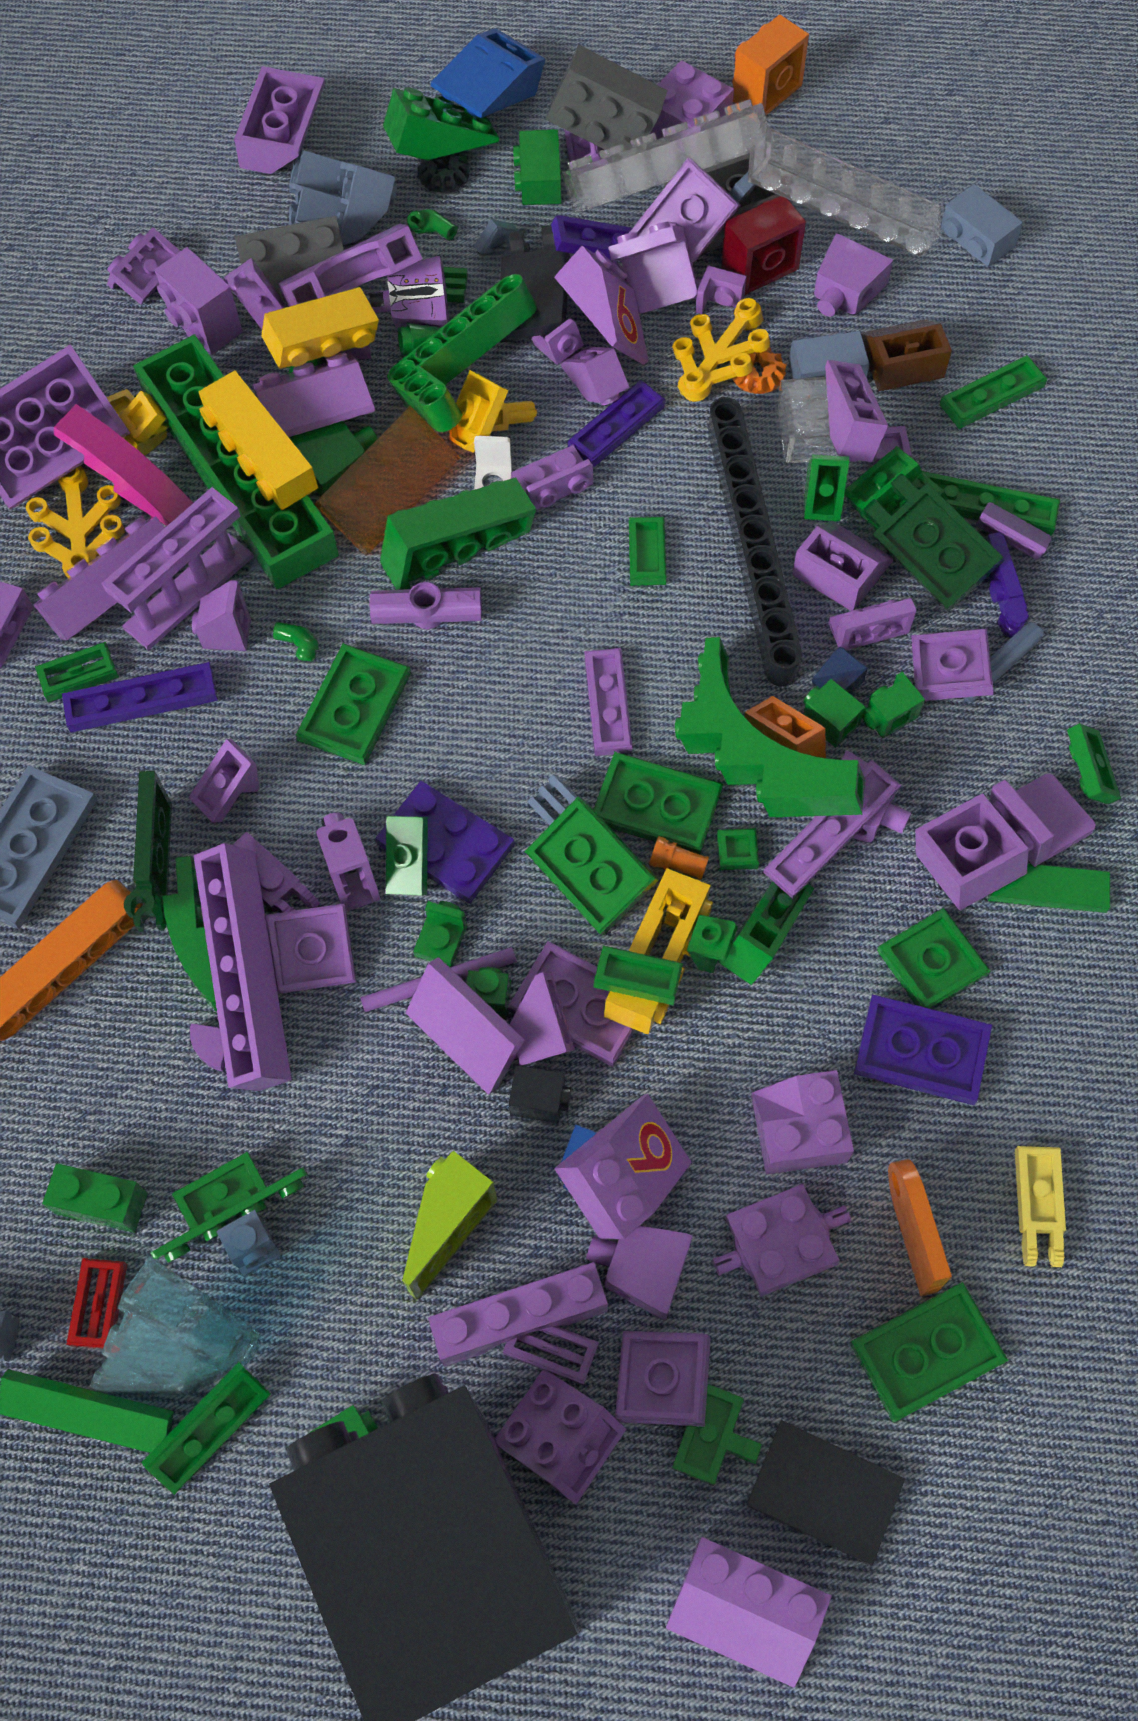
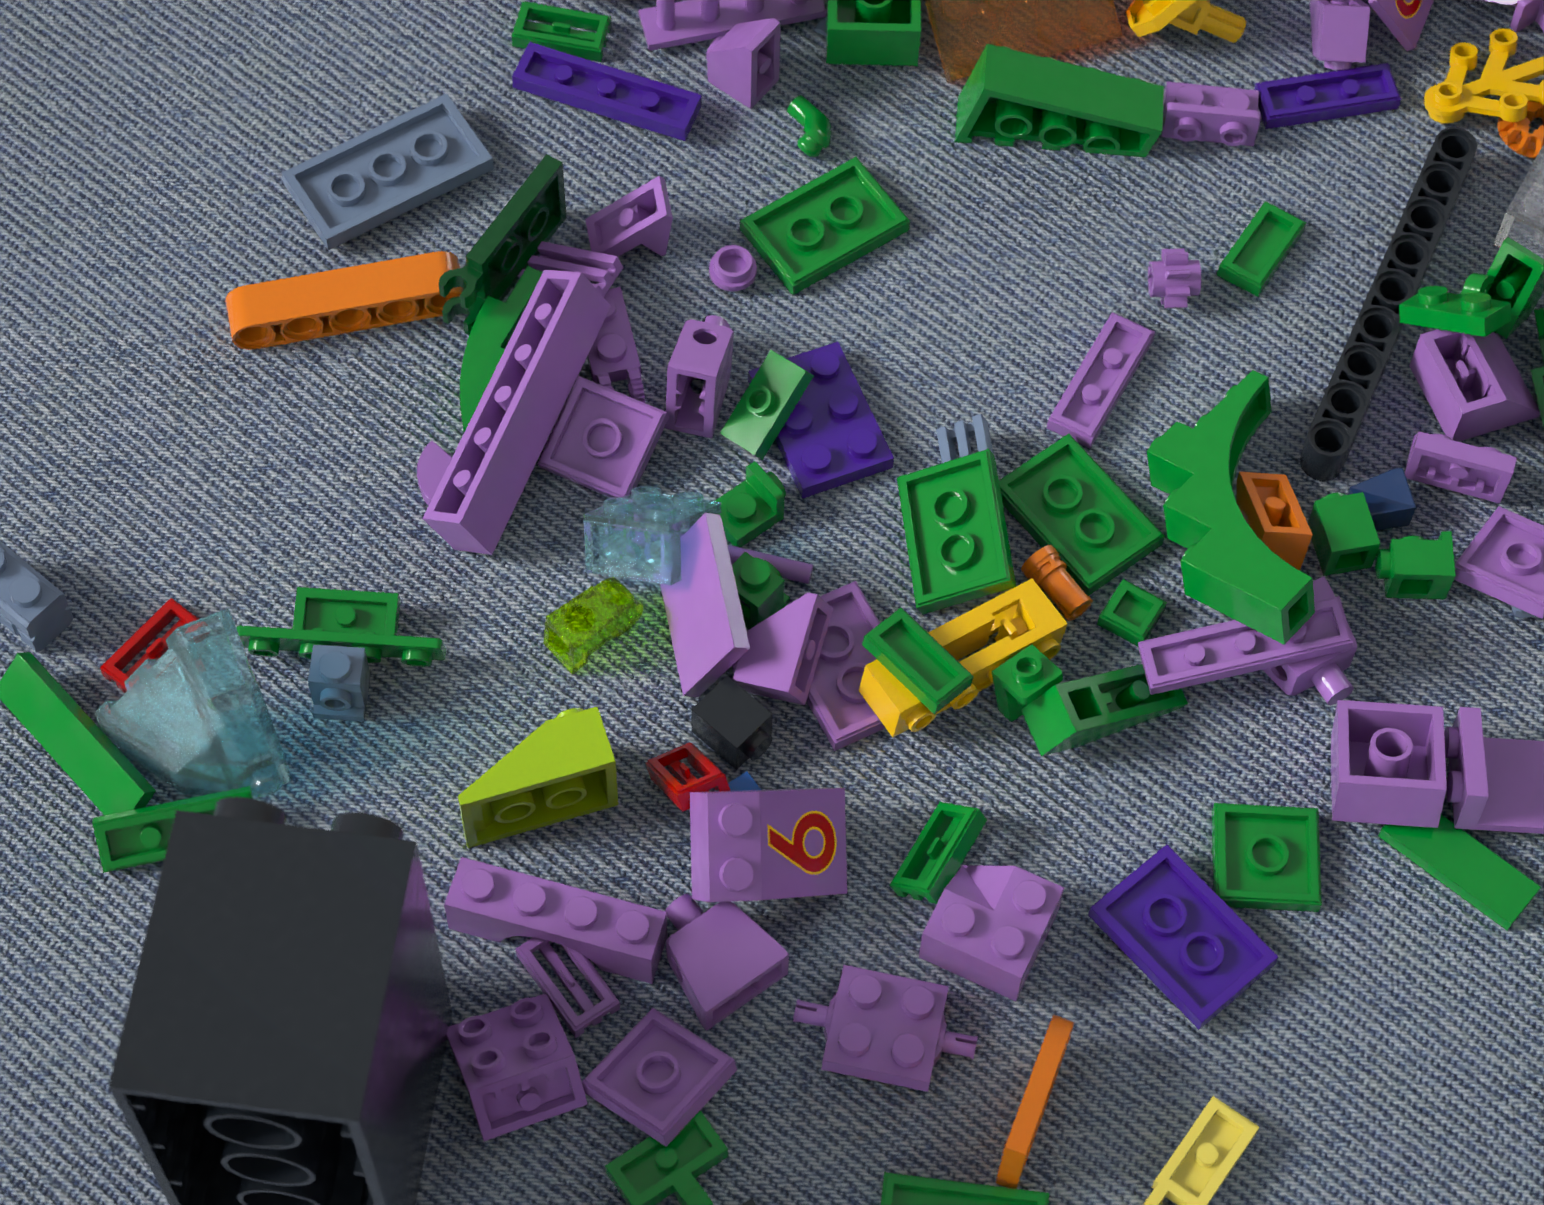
camera: 30 degrees right, 5 degrees down
(95, 1198) = (222, 547): green brick -> none
(205, 835) = (594, 265): none -> medium lavender tile
(313, 772) = (732, 268): none -> medium lavender plate
(387, 999) = (641, 534): none -> clear light blue bracket
(392, 1085) = (590, 622): none -> clear neon green leg
(446, 606) = (955, 156): medium lavender piece -> none
(492, 458) = (1157, 53): white bracket -> none
(546, 1172) = (711, 775): none -> red tile
(610, 604) = (1174, 278): none -> medium lavender gear
(738, 1093) = (942, 853): none -> green tile
(811, 522) = (1466, 313): none -> green plate

